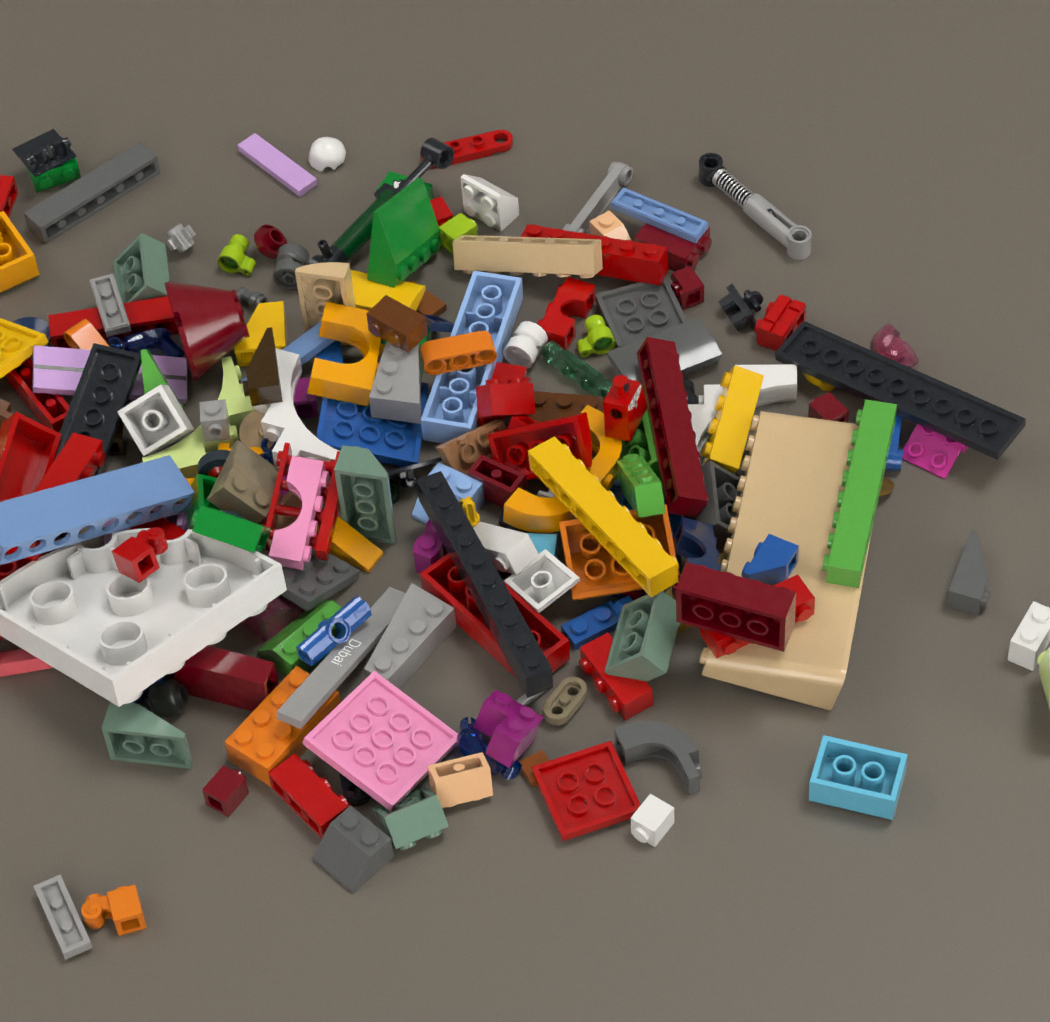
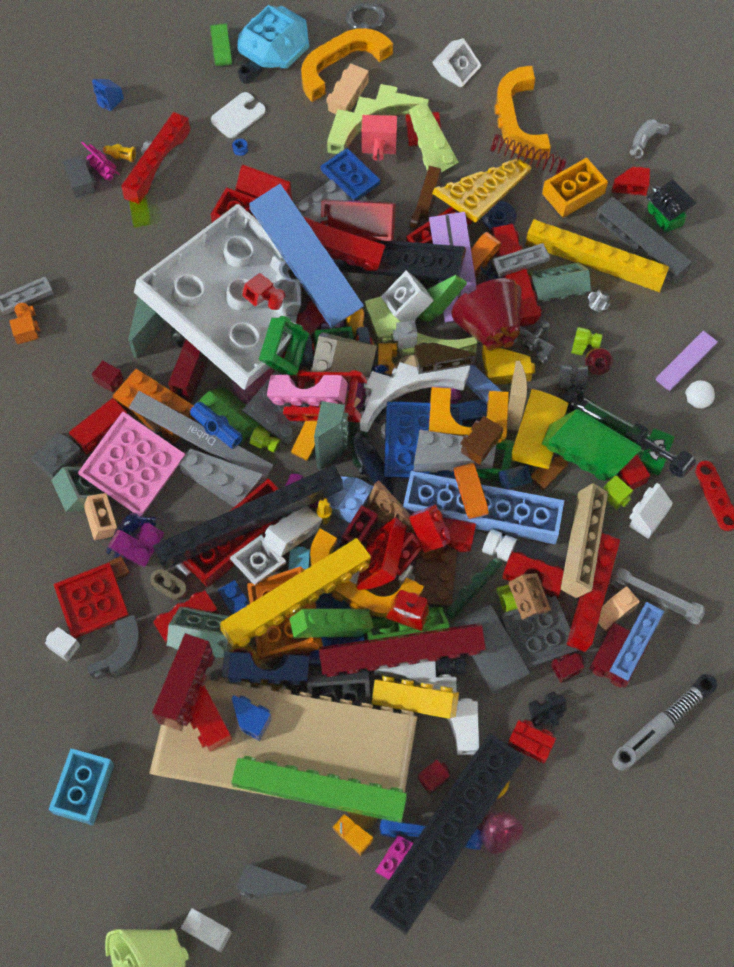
camera: 85 degrees right, 15 degrees up
(109, 237) = (597, 255): none -> yellow brick
(355, 587) = (261, 439): none -> lime piece
(600, 311) = (529, 595): none -> medium nougat bracket
(904, 492) = (353, 834): none -> light orange leg

